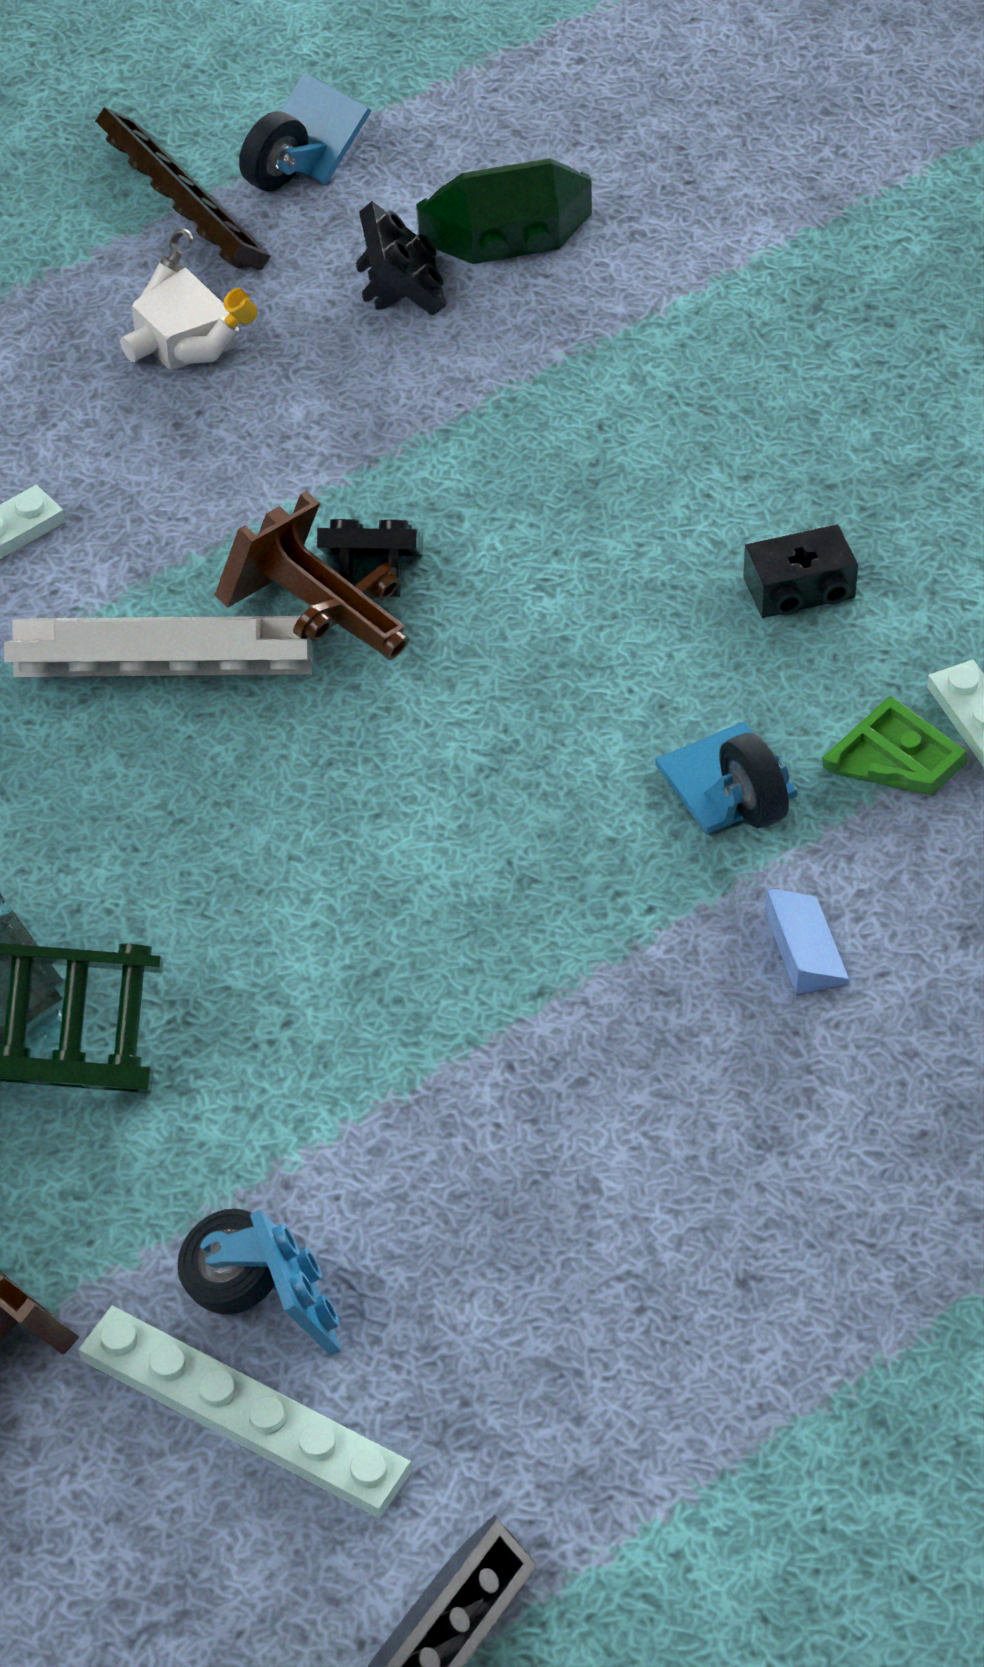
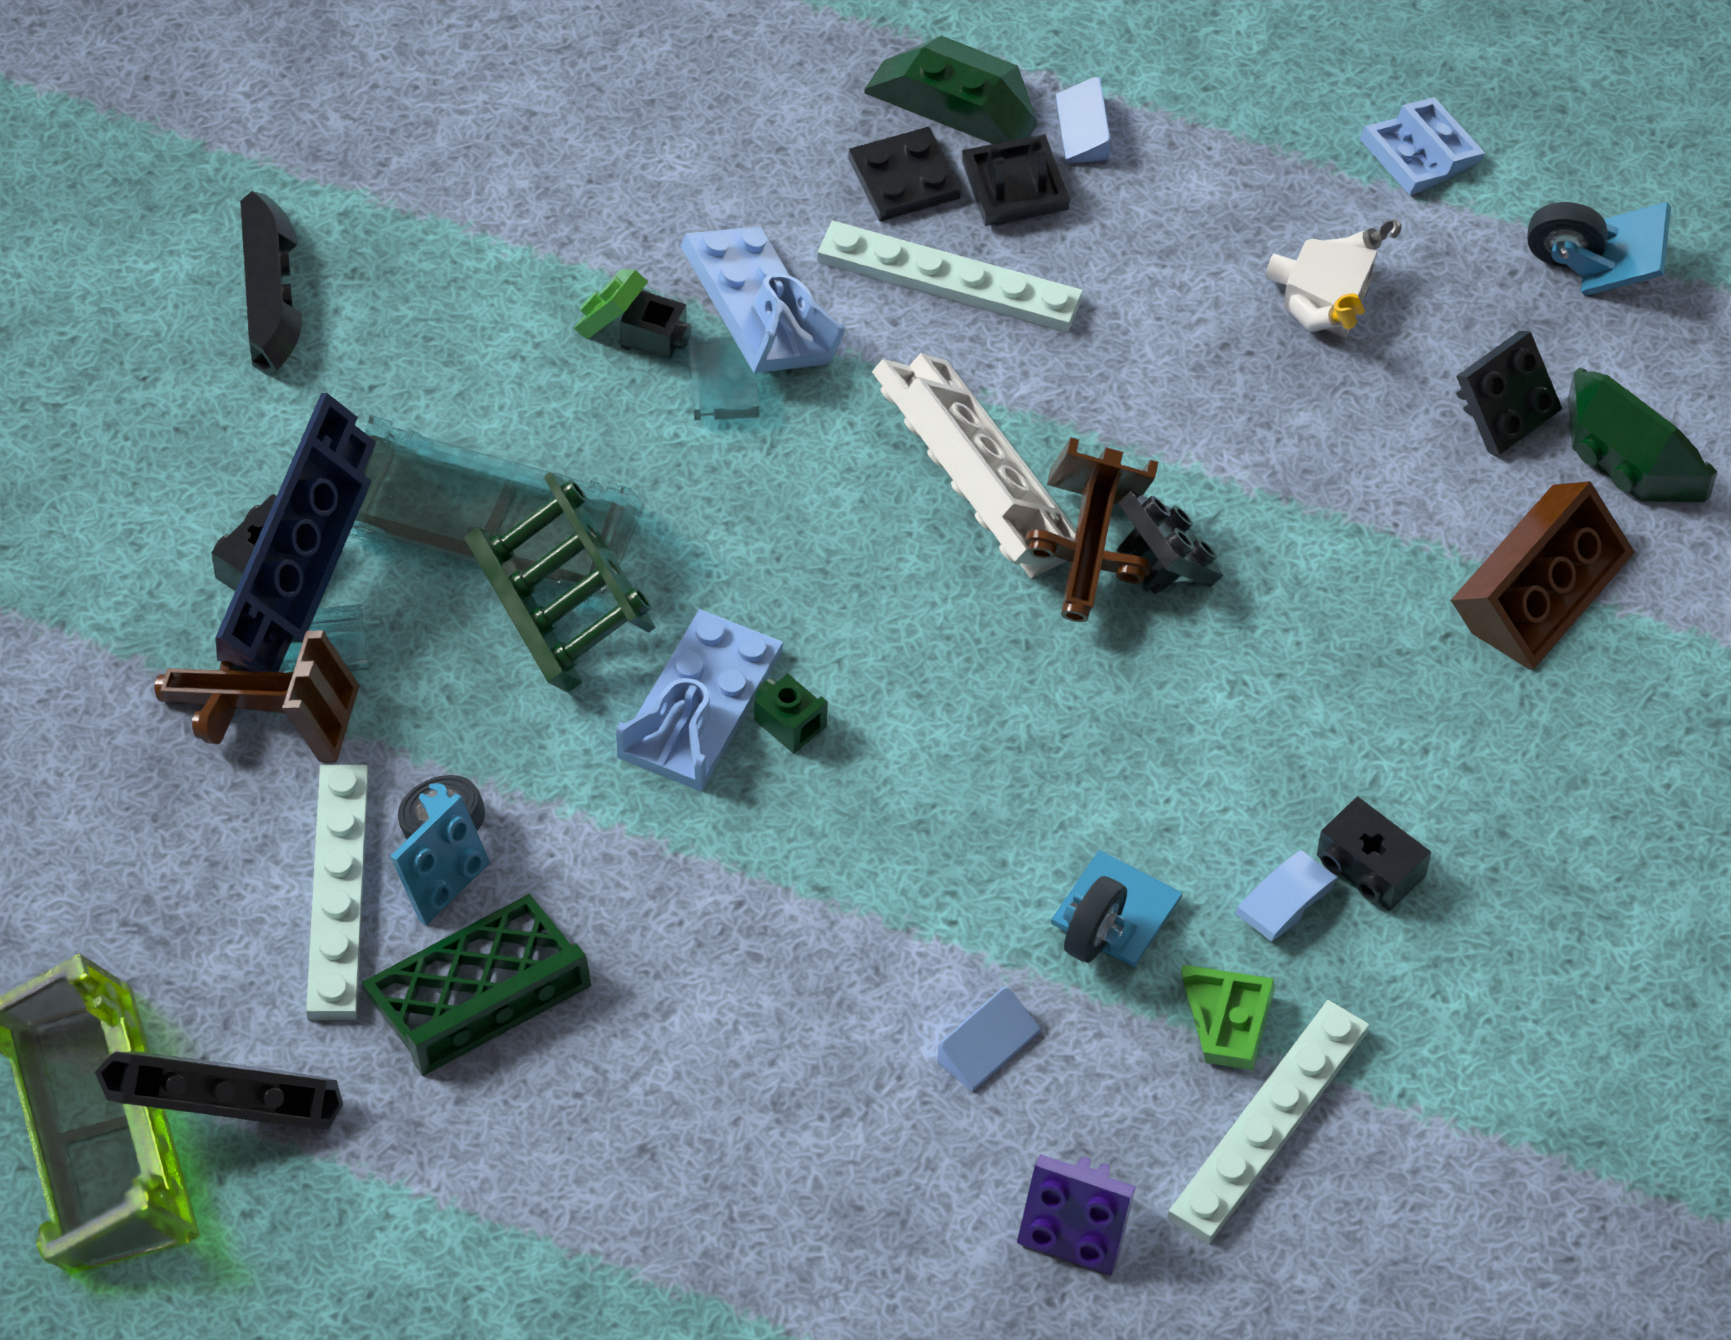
camera: 55 degrees right, 5 degrees up
(86, 204) = (1422, 146): none -> light blue slope
(189, 197) = (1484, 199): dark brown plate -> none
(253, 986) = (698, 700): none -> light blue plate
(327, 916) = (789, 712): none -> dark green brick
(498, 1335) = (495, 1005): none -> dark green fence
(592, 331) = (1544, 573): none -> reddish brown slope
(799, 652) = (1285, 894): none -> light blue slope

